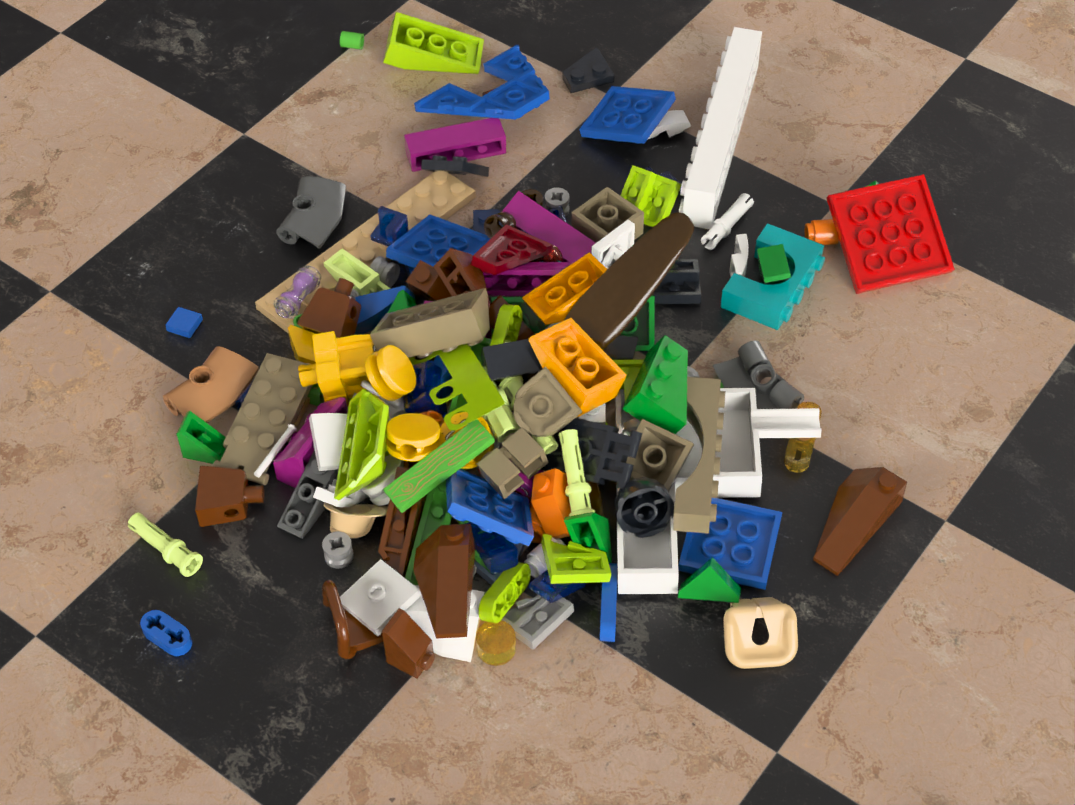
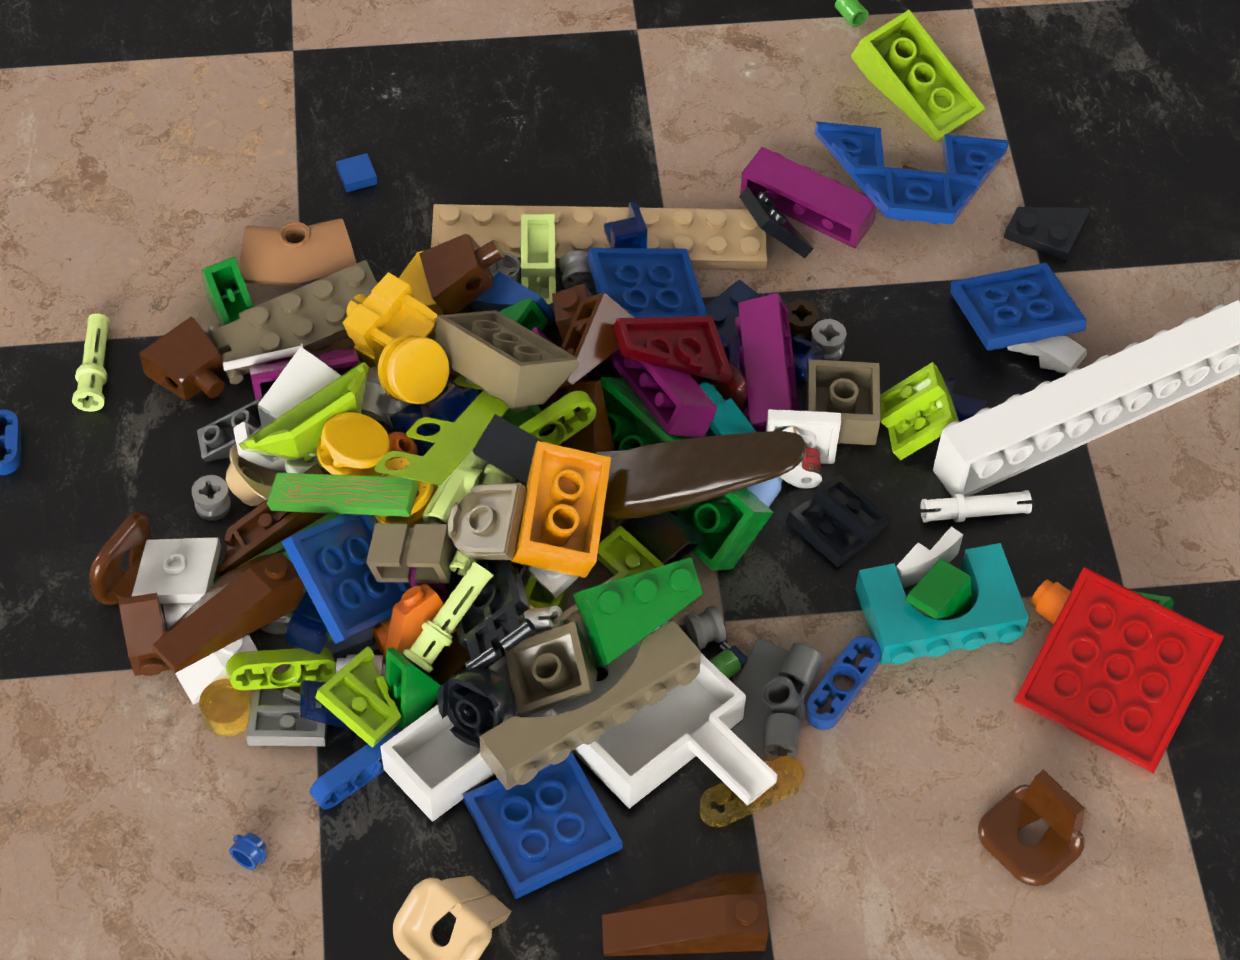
camera: 45 degrees right, 5 degrees up
(304, 283) = (481, 221): clear piece -> none
(314, 212) = (592, 158): dark grey panel -> none
(492, 225) = (726, 315): dark brown wheel -> none
(561, 292) = (644, 424): light orange slope -> none
(607, 697) = (248, 850): none -> blue plate
(710, 584) = (464, 845): green slope -> none
(777, 341) = (843, 698): none -> blue beam
(946, 315) = (1022, 806): none -> reddish brown piece

